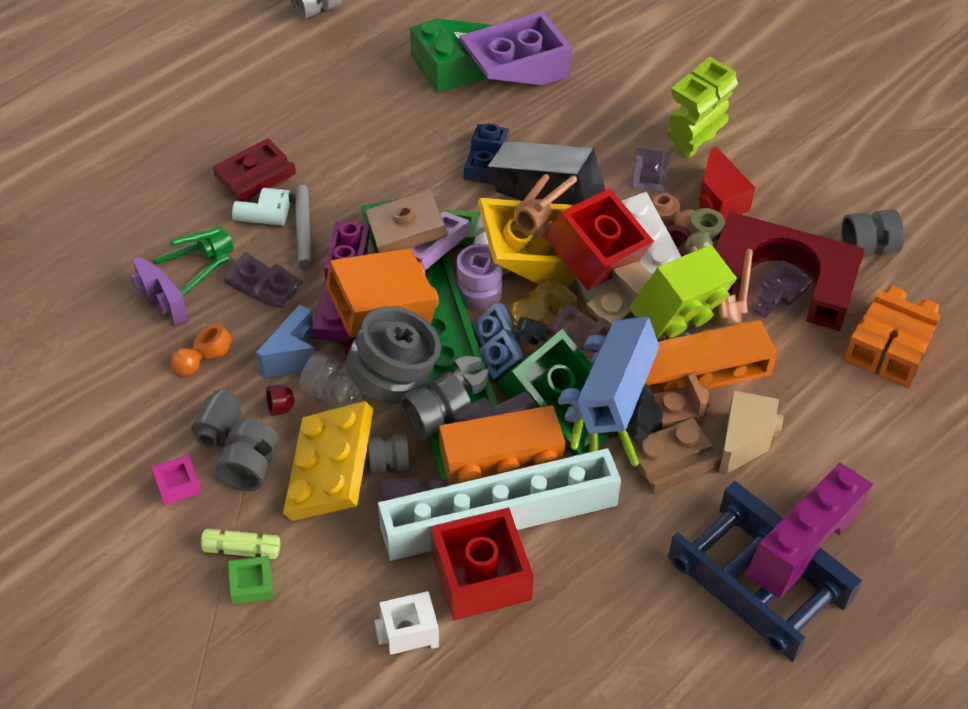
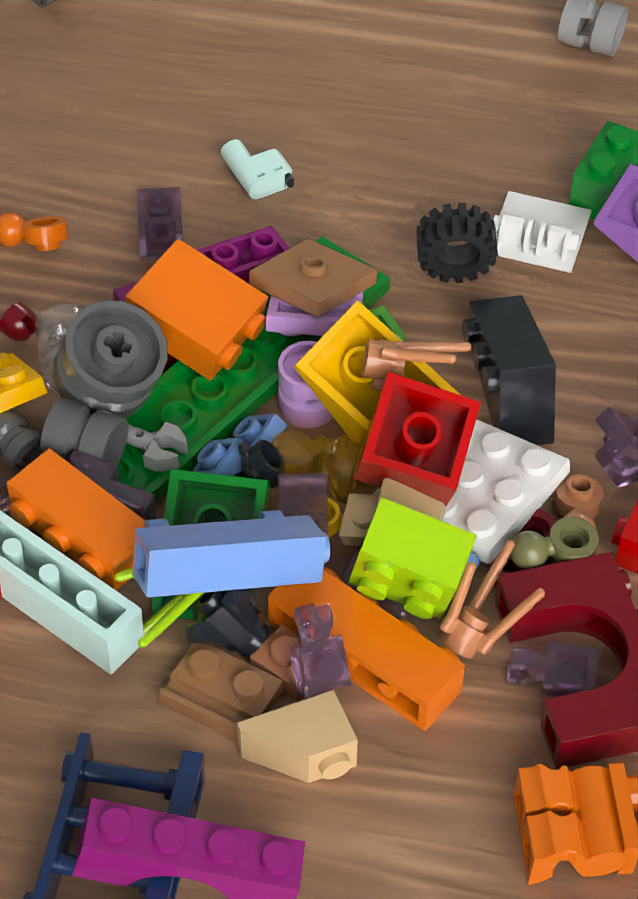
camera: 55 degrees right, 0 degrees up
(158, 289) = (73, 163): medium lavender slope -> none
(211, 243) = (166, 157): green plant -> none
(254, 169) = (297, 130): dark red plate -> none
(288, 346) = (85, 282): medium blue slope -> none
(303, 227) = (265, 210): light grey bar -> none
(434, 146) = (456, 226): none -> black tyre
(448, 112) = (540, 231): none -> white hinge
(484, 146) = (531, 282): dark blue slope -> none
(708, 383) = (320, 658): none -> clear purple plate

